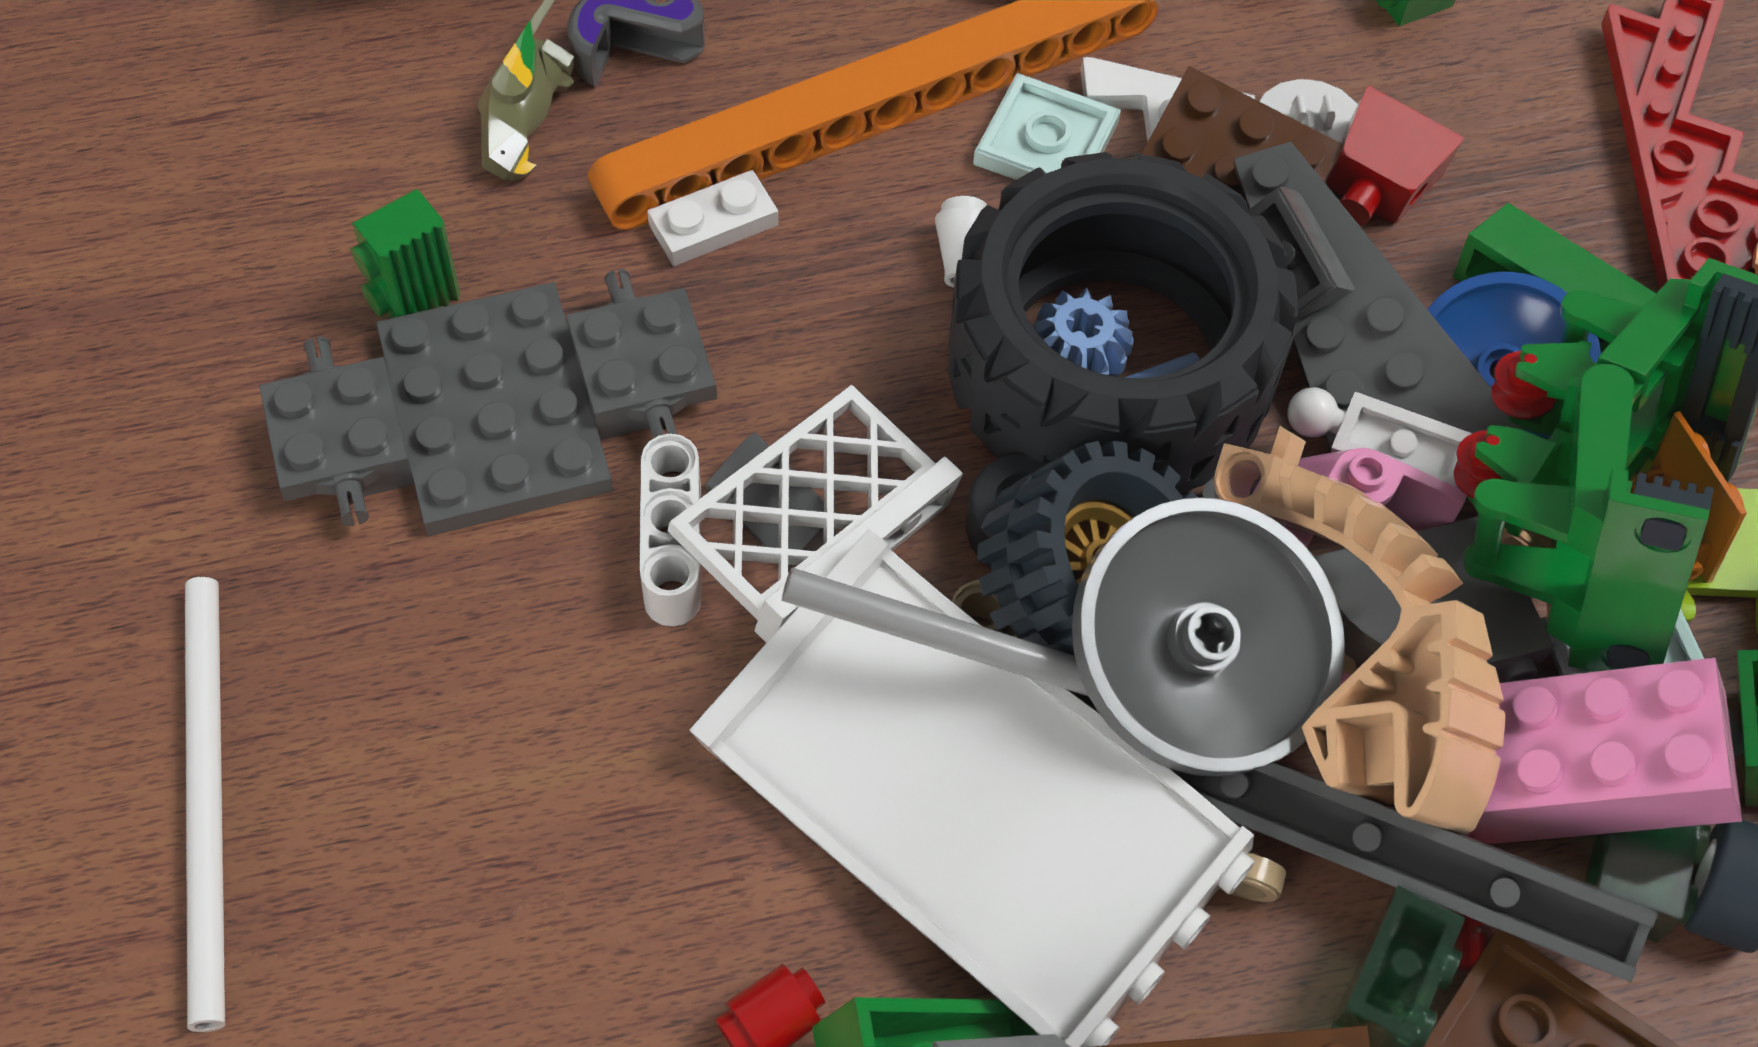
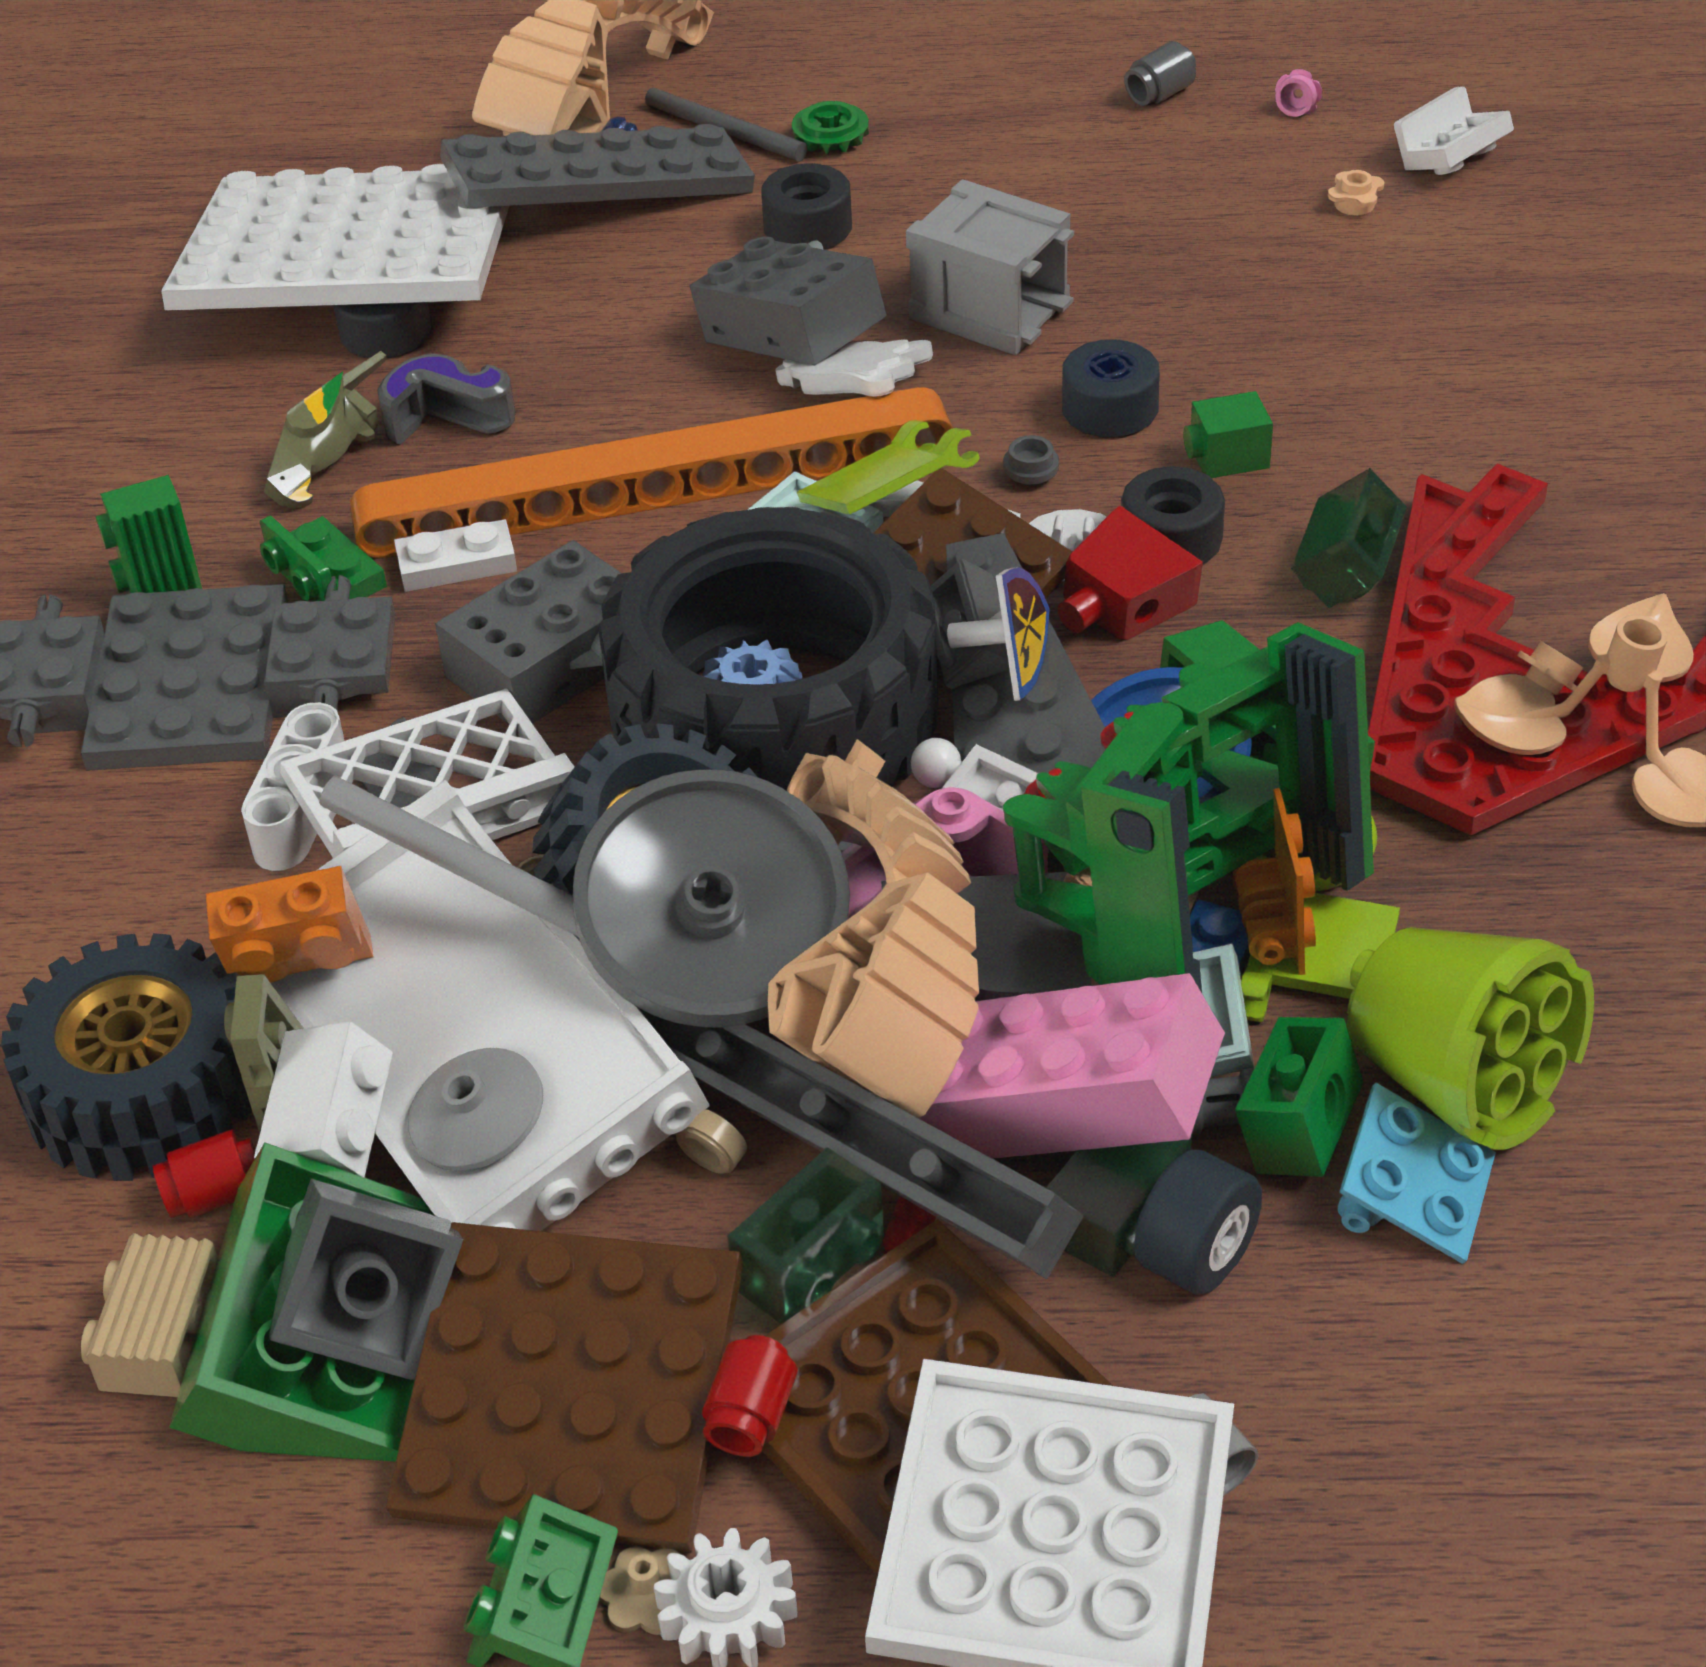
camera: 20 degrees right, 15 degrees down
(578, 246) = (314, 555): none -> green bracket
(665, 966) = (125, 1055): none -> black wheel
(792, 867) = (256, 1031): none -> olive wing
(795, 729) = (288, 925): none -> orange plate
(857, 306) = (532, 633): none -> dark grey piece
(880, 924) = (327, 1095): none -> white brick
(1042, 937) = (475, 1109): none -> light grey dish
(1125, 73) = (888, 470): none -> lime flag
(1238, 30) = (1031, 460): none -> dark grey plate
(1349, 268) = (1019, 624): none -> shield
(1408, 59) = (1180, 506): none -> black tyre
(1578, 89) = (1349, 539): none -> clear green brick

